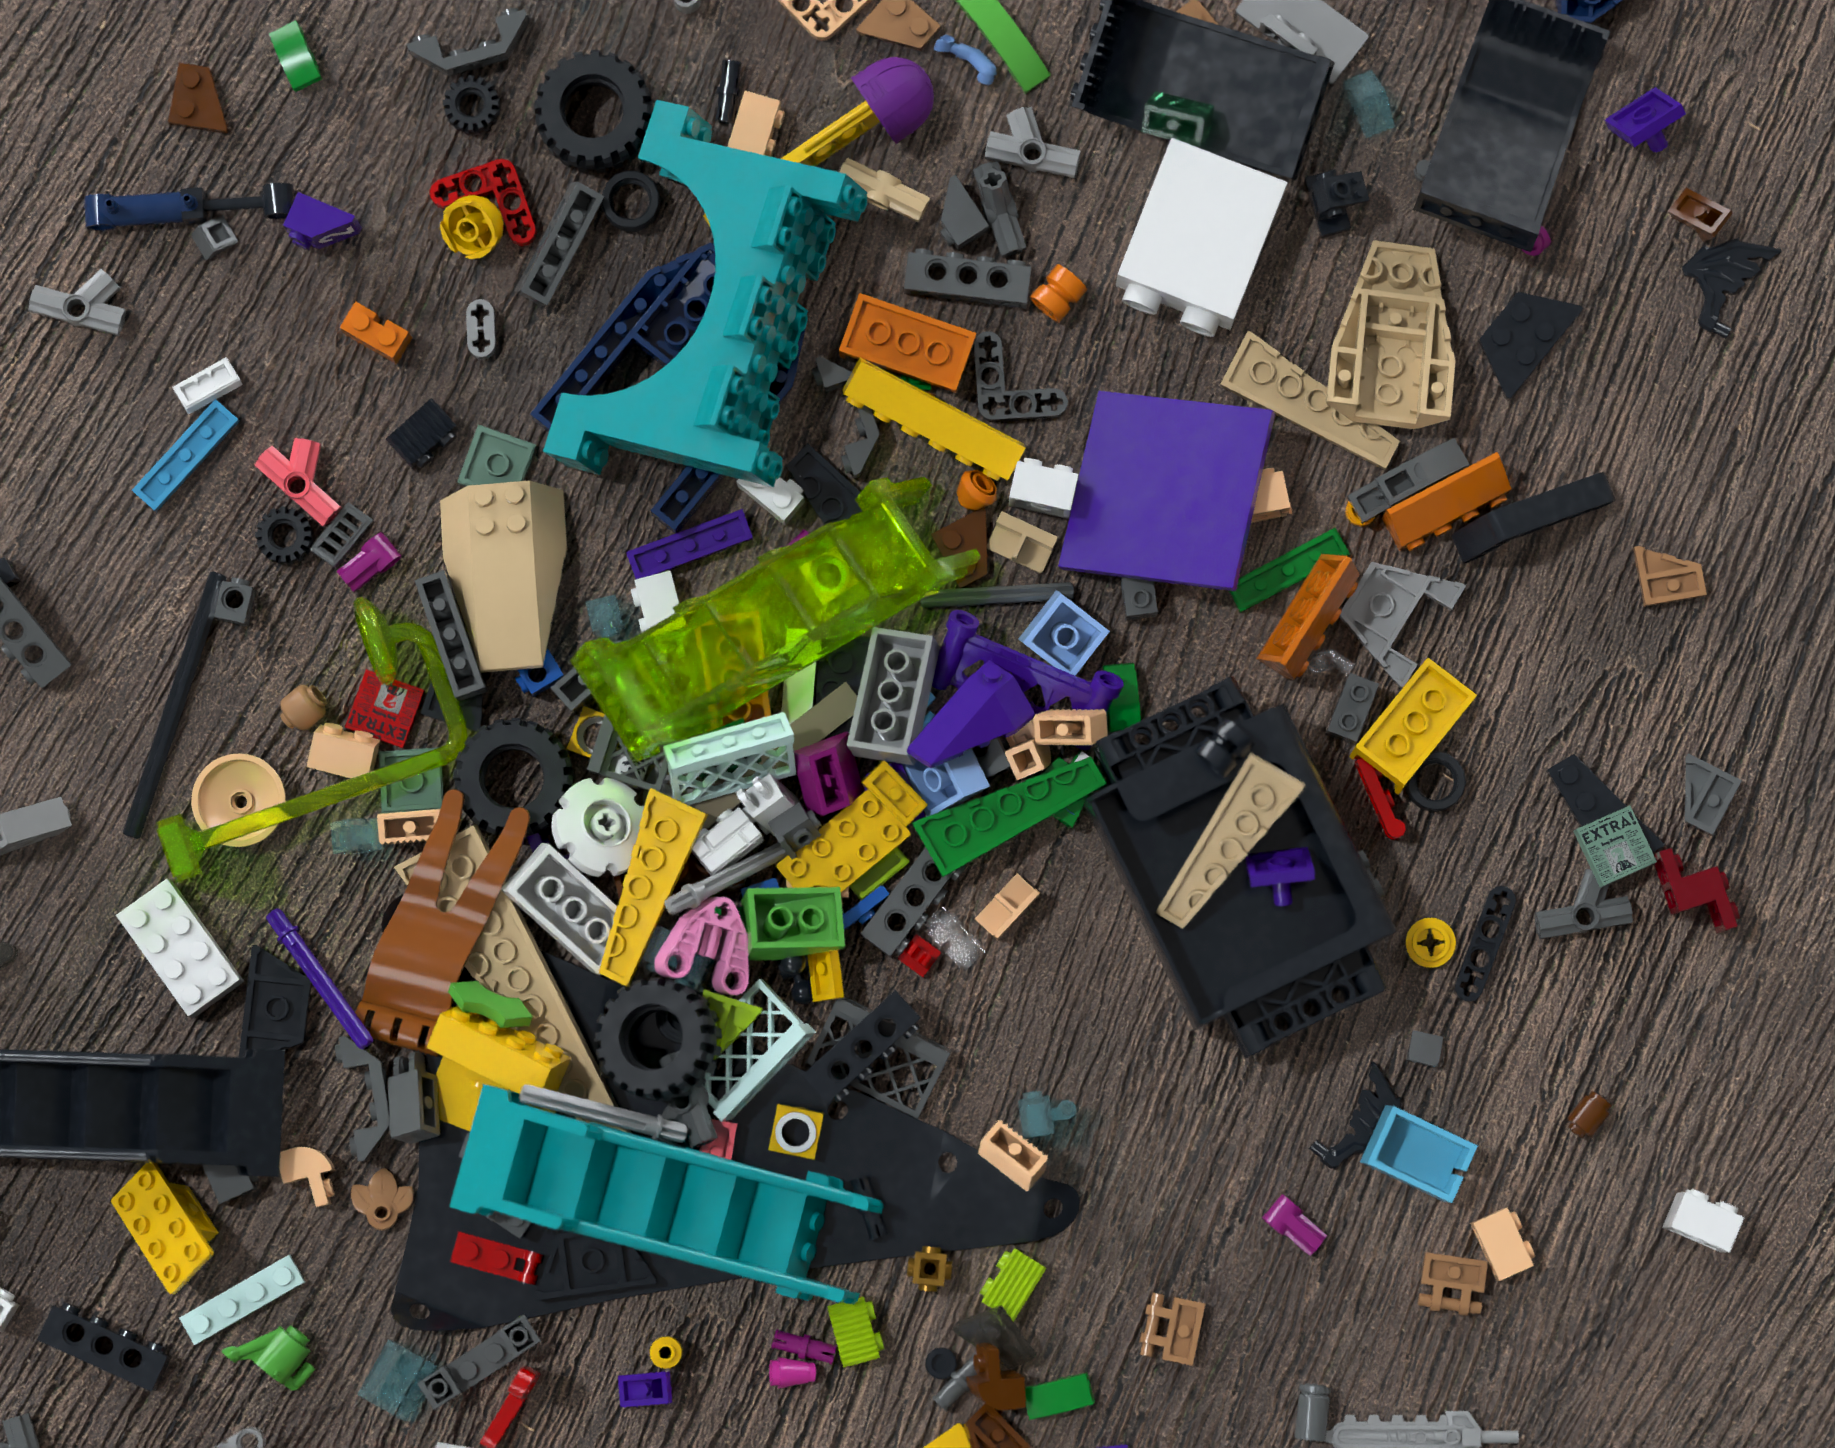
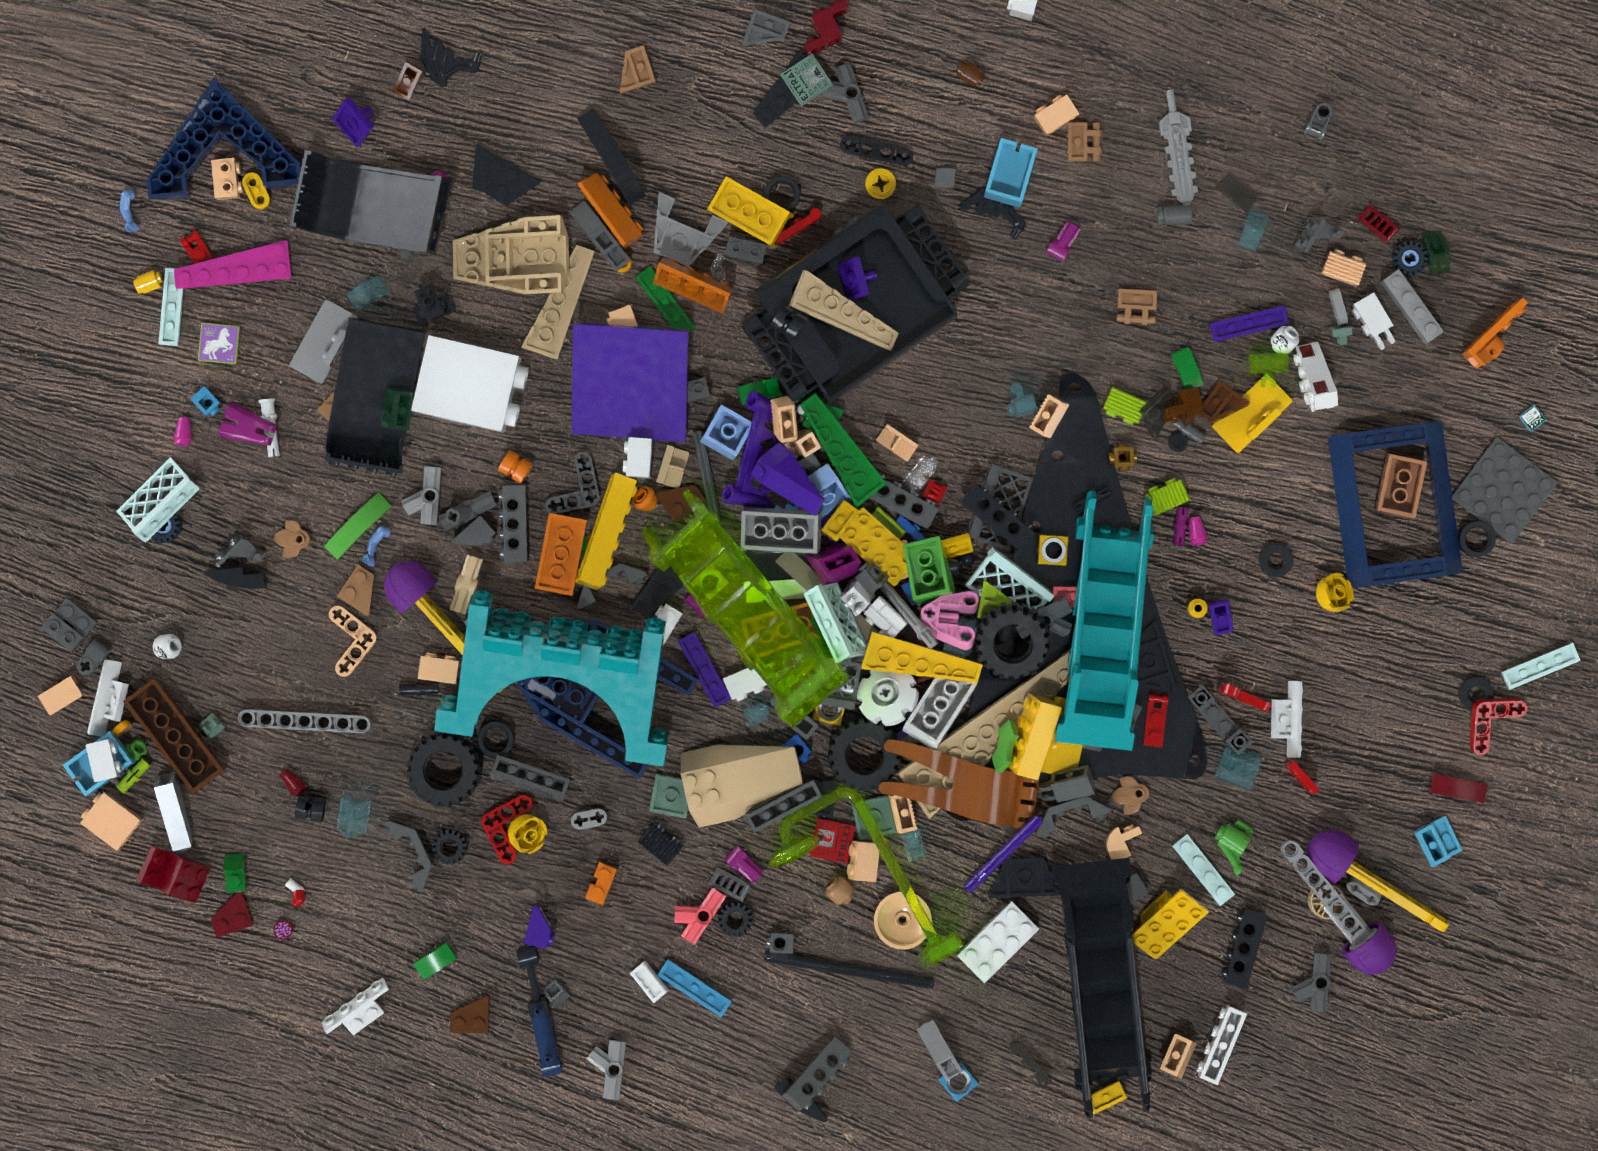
camera: 100 degrees left, 5 degrees up
(603, 1113) = (1062, 666): light grey axle -> none

